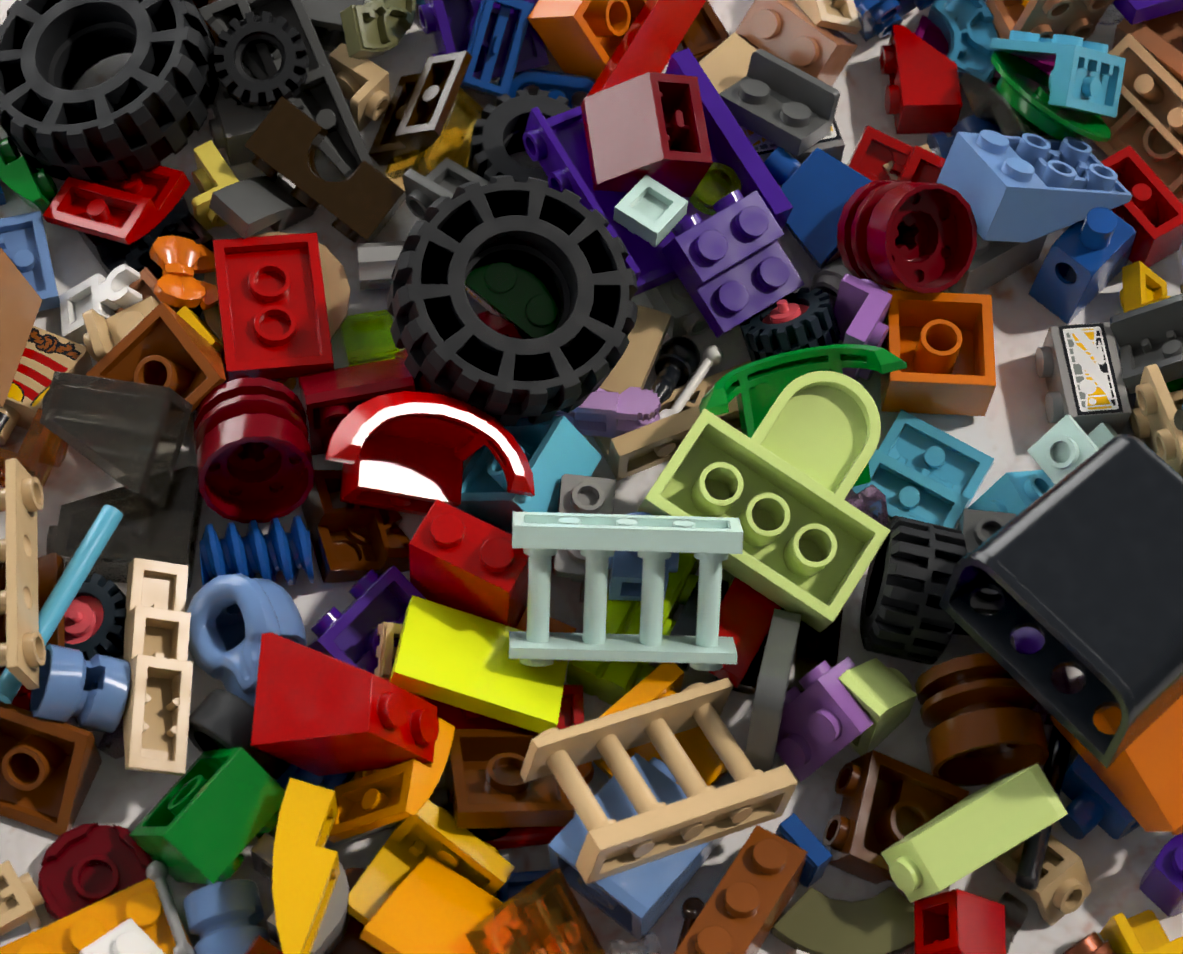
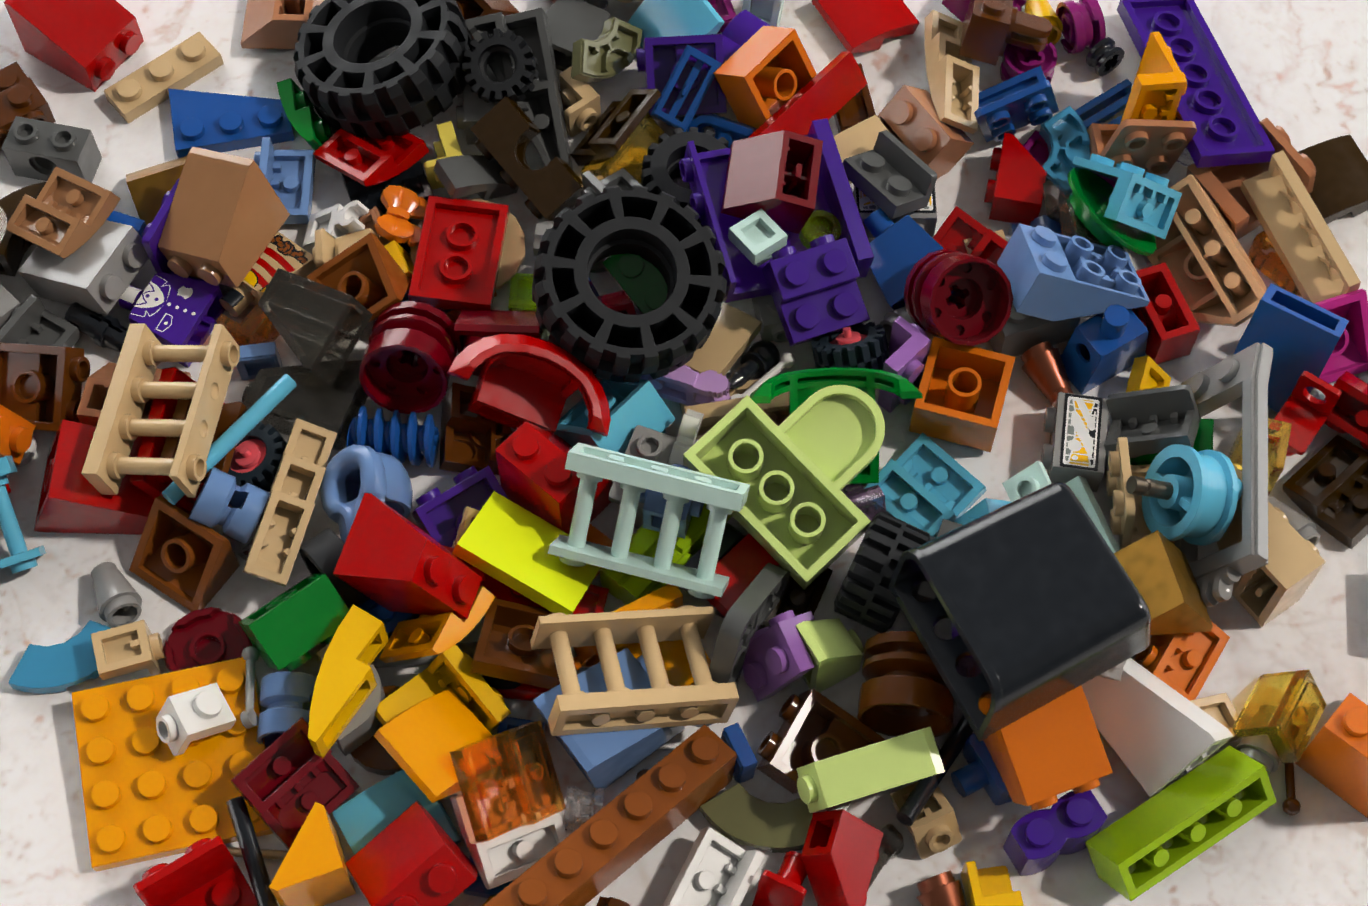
camera: 20 degrees right, 0 degrees up
(58, 489) = (257, 357): none -> medium blue tile
(627, 475) = (686, 436): none -> white plate
(1023, 305) = (1046, 370): none -> copper cone

